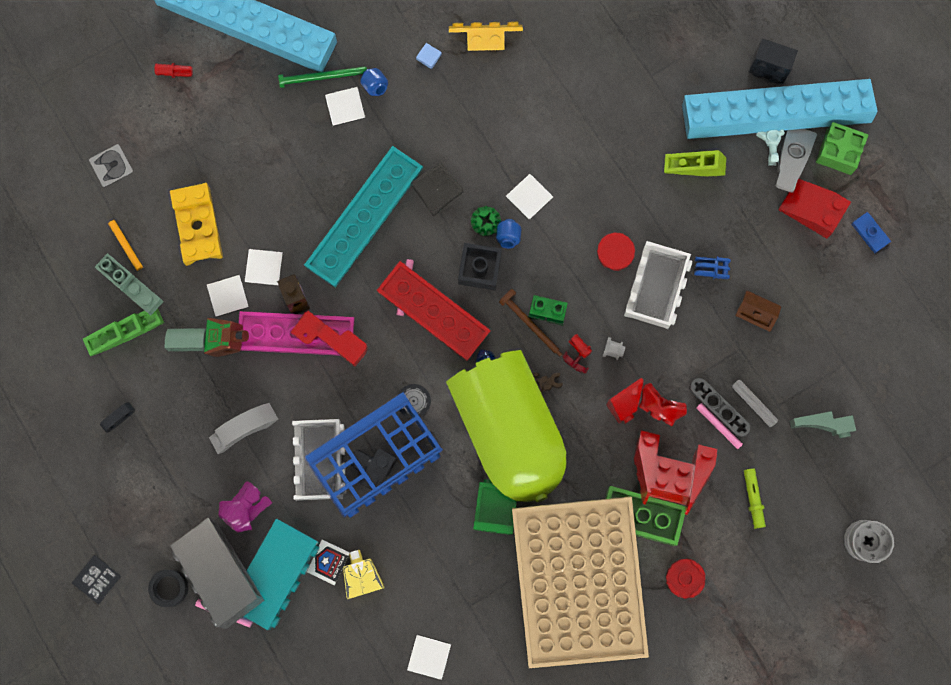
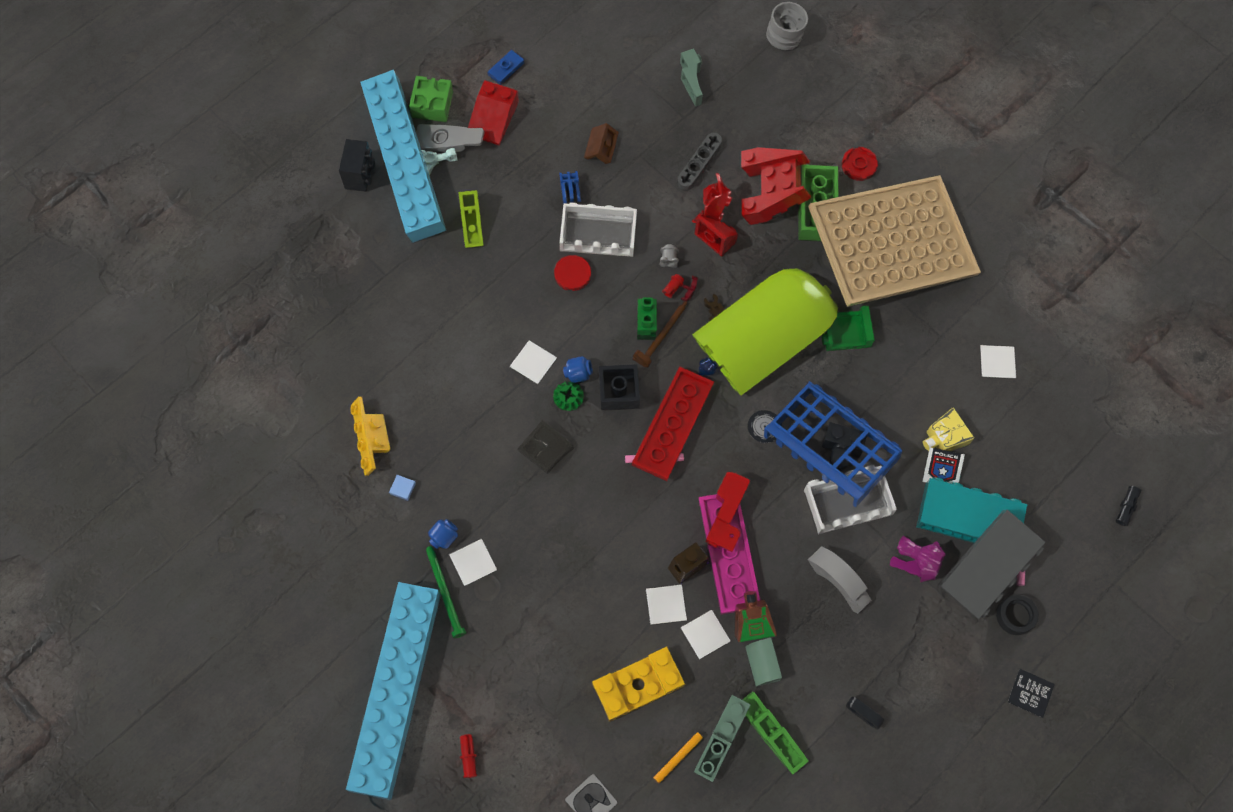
camera: 105 degrees left, 10 degrees down
(363, 216) = (591, 512): teal plate -> none
(715, 422) = (715, 159): bright pink bar -> none
(754, 498) = (780, 118): lime pin -> none
(755, 403) = (687, 134): light grey axle -> none

